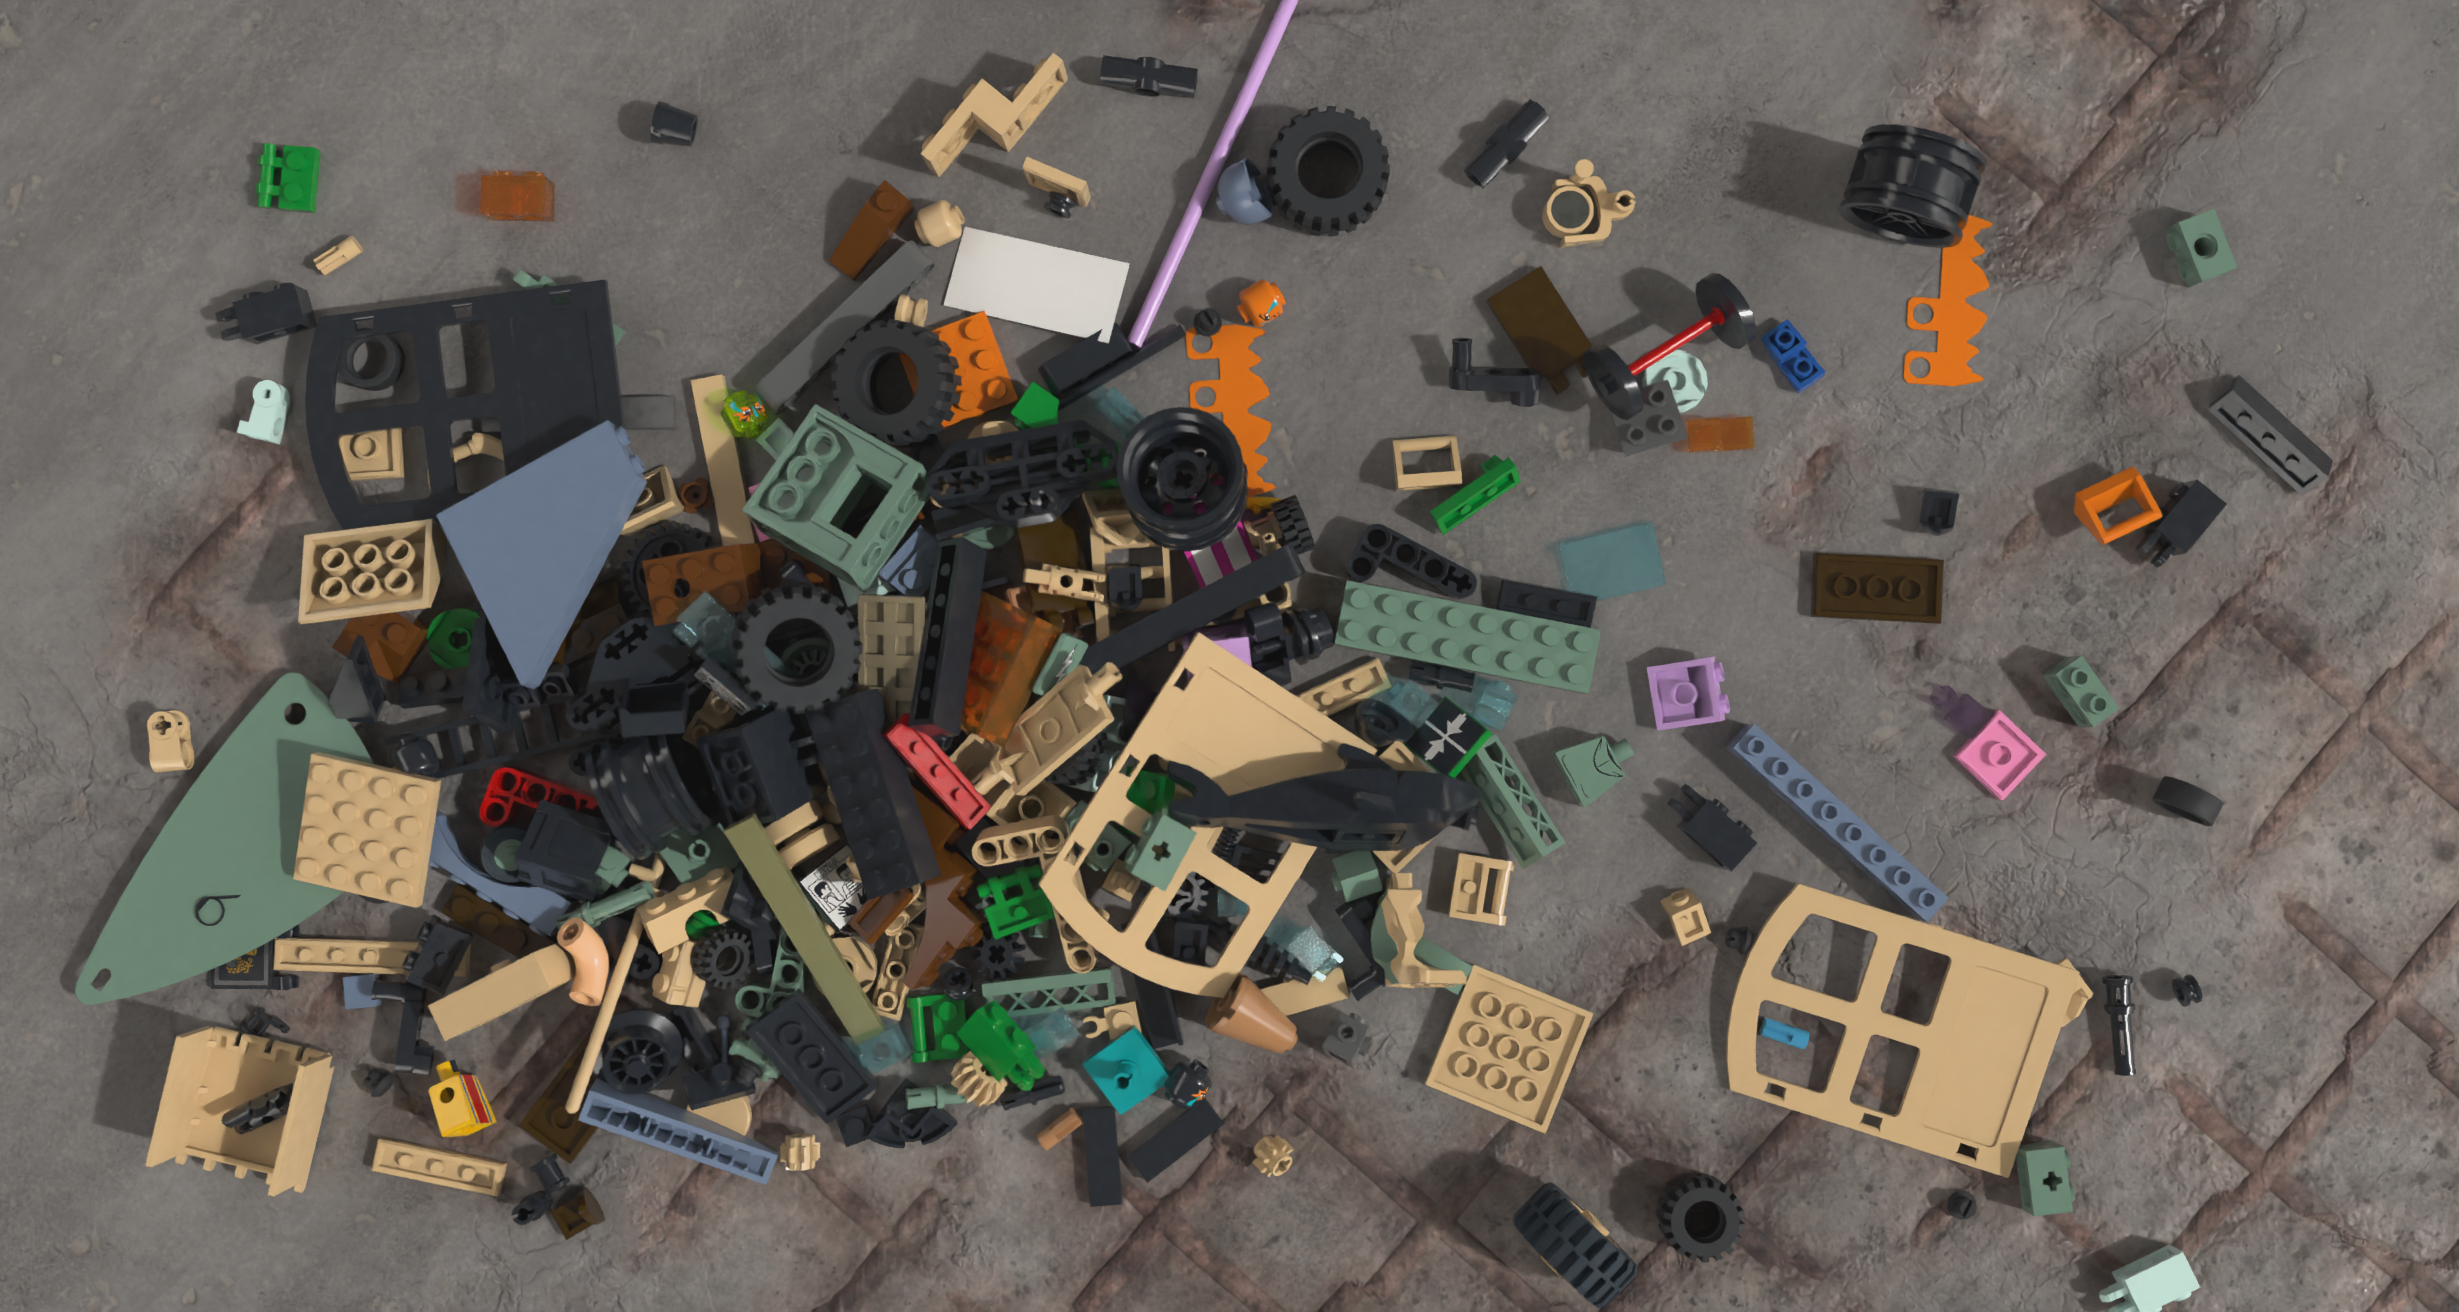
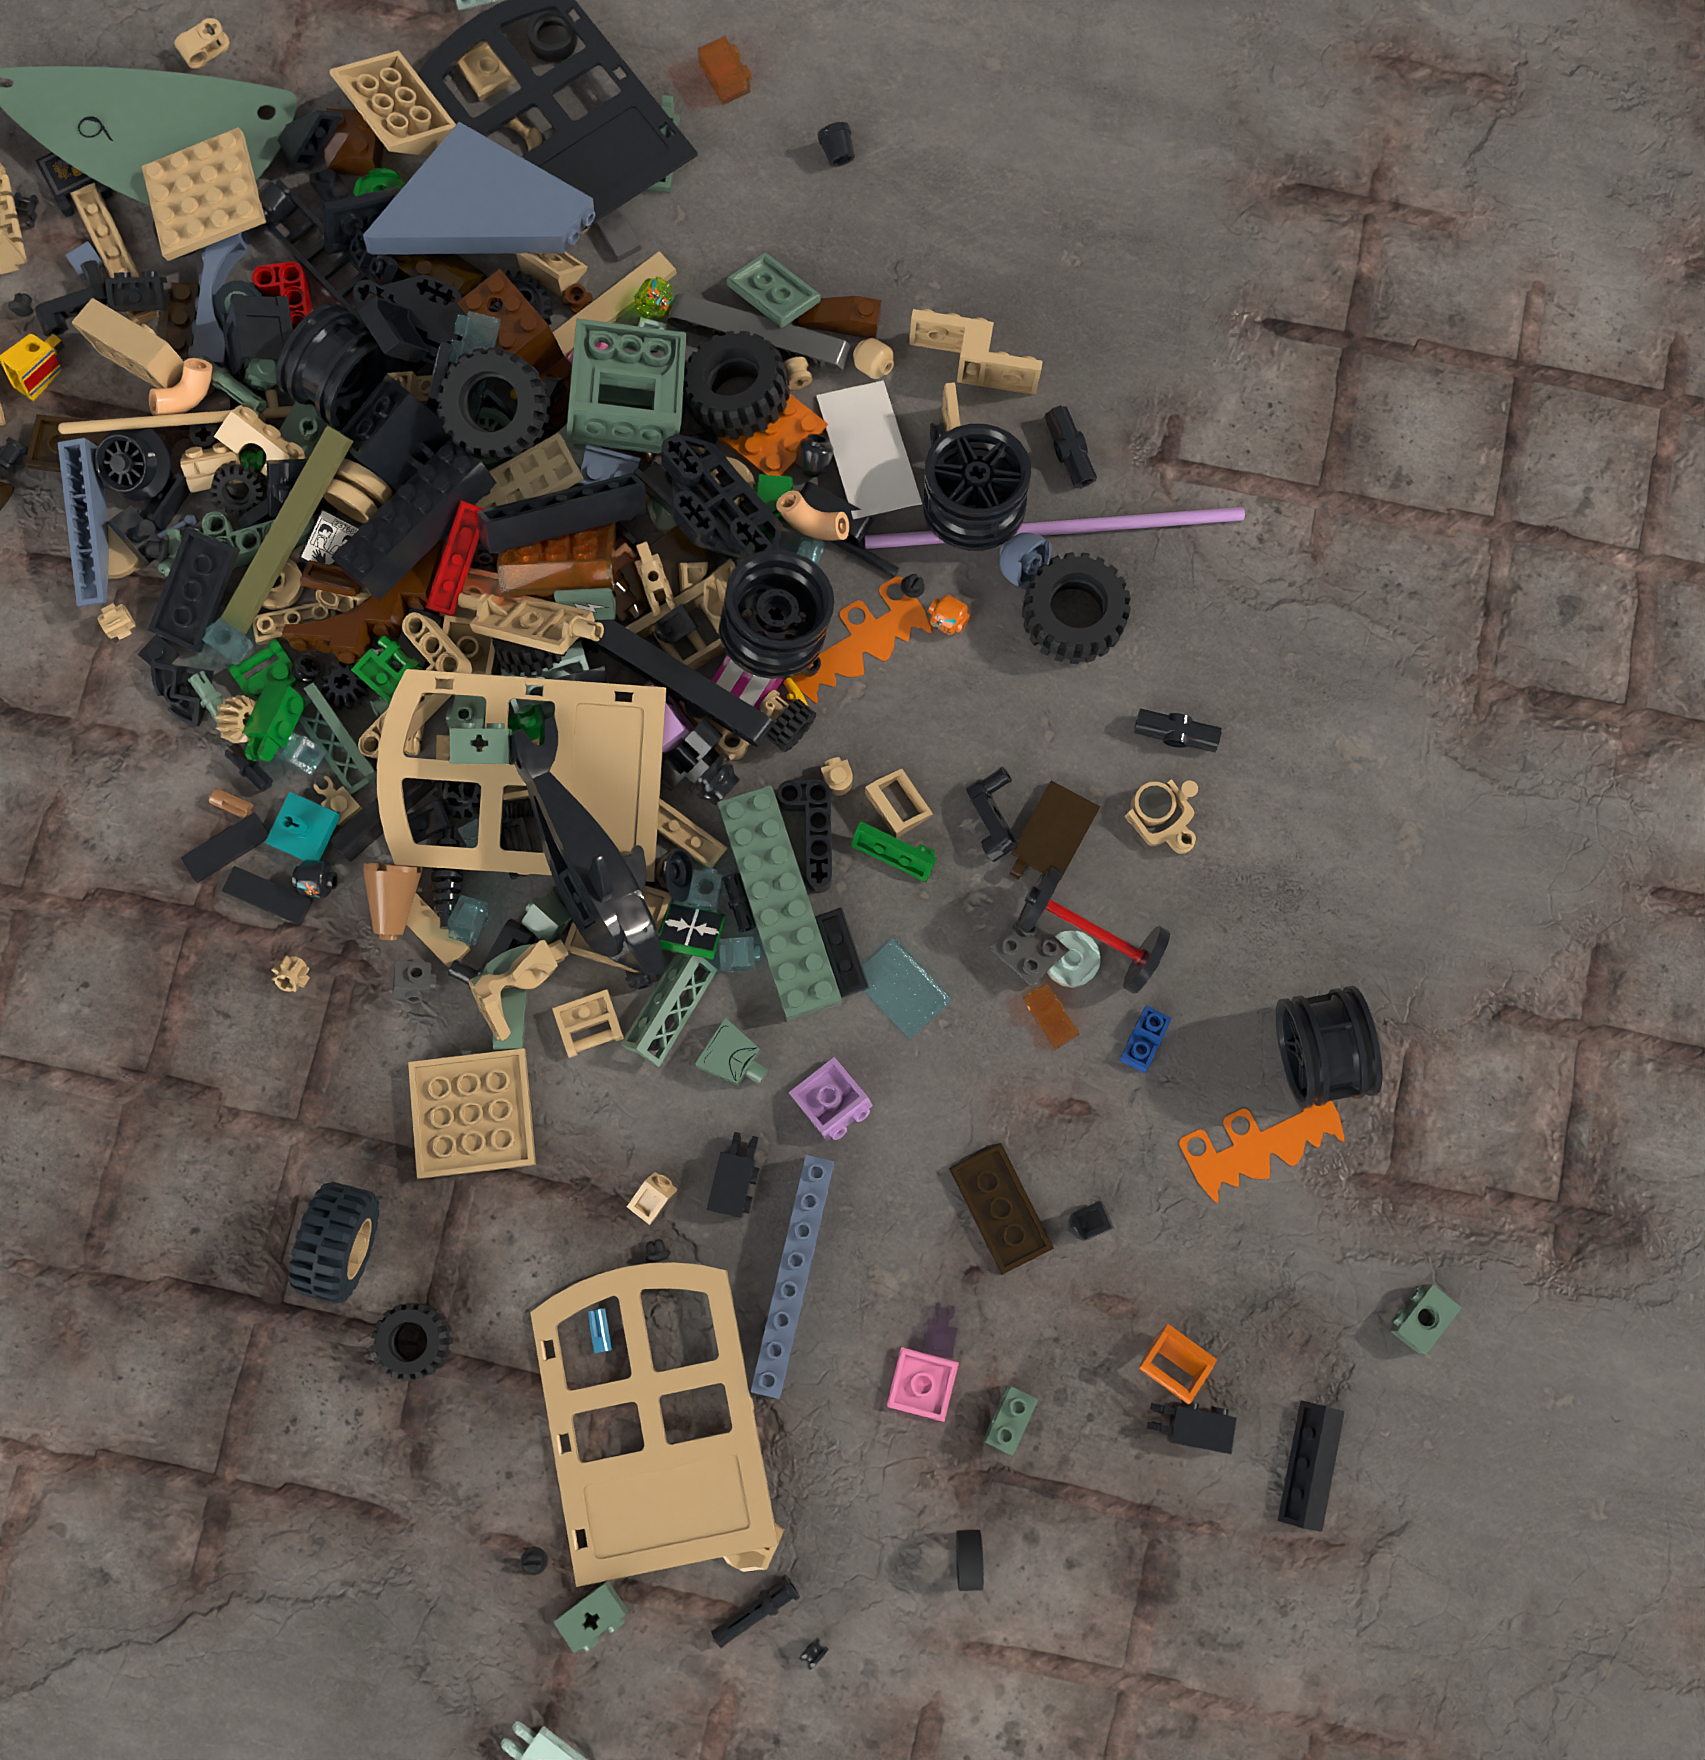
camera: 55 degrees right, 10 degrees down
(805, 285) = (773, 290): none -> sand green tile
(1014, 344) = (814, 455): none -> black head
(1075, 540) = (691, 574): none -> tan tile
(1091, 386) = (811, 521): none -> light nougat cylinder
(1103, 191) = (978, 468): none -> black wheel
(1366, 508) = (837, 776): none -> tan plate

